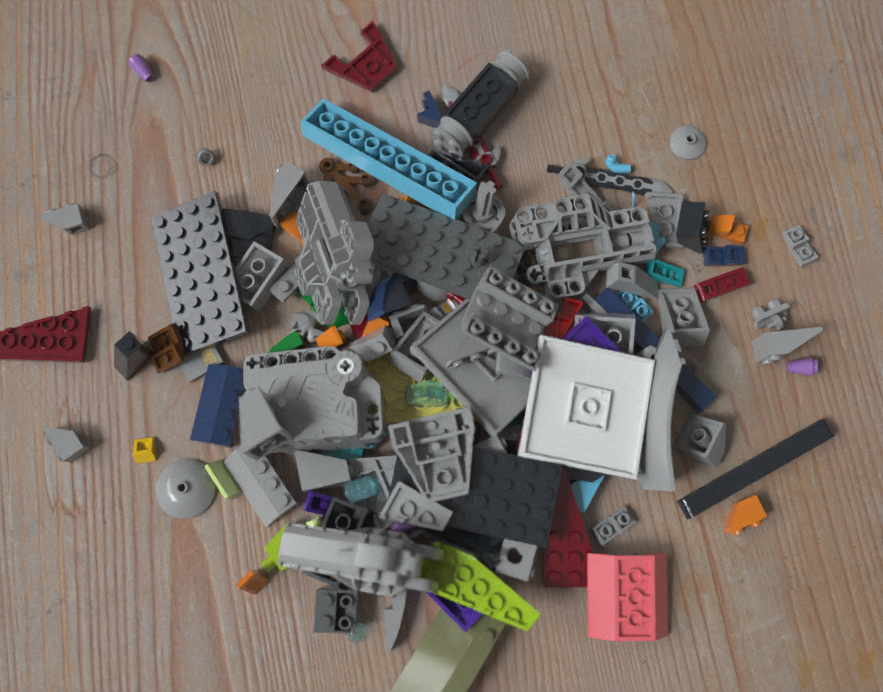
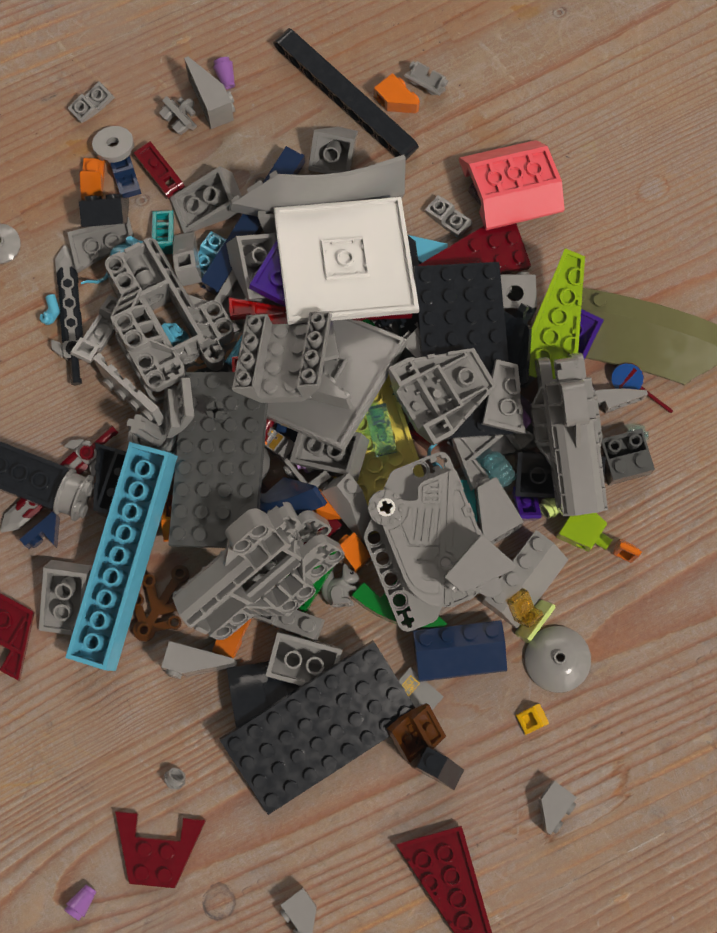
camera: 110 degrees left, 0 degrees up
(152, 127) = (156, 860): none -> dark red wing
(232, 470) = (523, 608): none -> clear yellow bracket
(379, 111) = (62, 595): none -> light grey slope
(407, 643) = (631, 377): none -> blue piece
(494, 229) = (178, 408): none -> light grey slope
(525, 199) = (126, 391): none -> light grey wing
(563, 250) = (175, 333): none -> medium azure slope
(748, 554) = (434, 84): none -> light grey hinge
(763, 248) = (110, 135): none -> light grey tile

